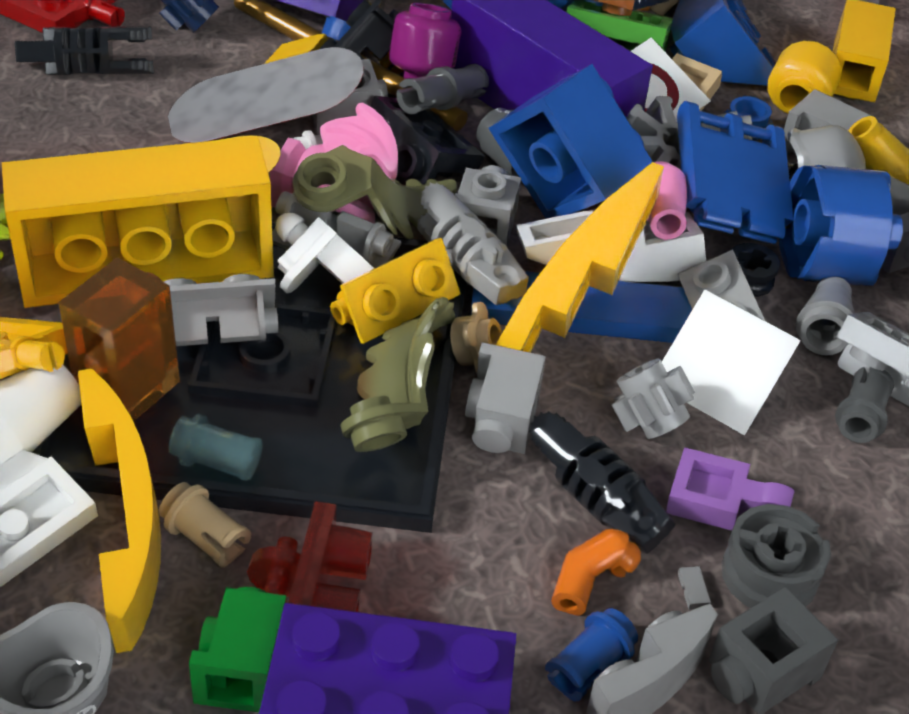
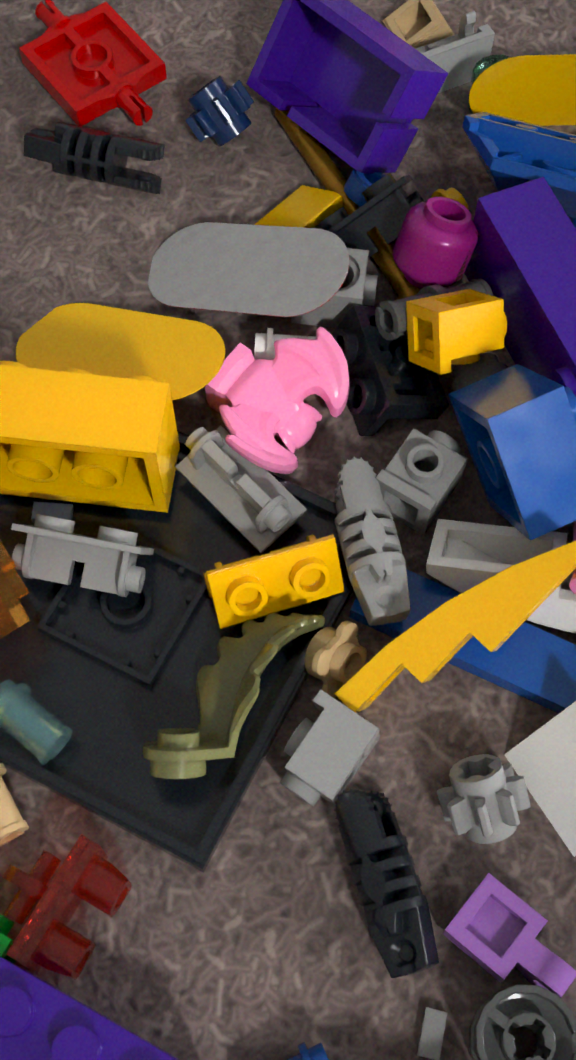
camera: 25 degrees right, 20 degrees up
(313, 247) = (217, 512): white piece -> none
(355, 176) = (292, 445): olive plant -> none
(470, 86) = (454, 328): none -> yellow brick
(588, 560) = (337, 970): orange arm -> none

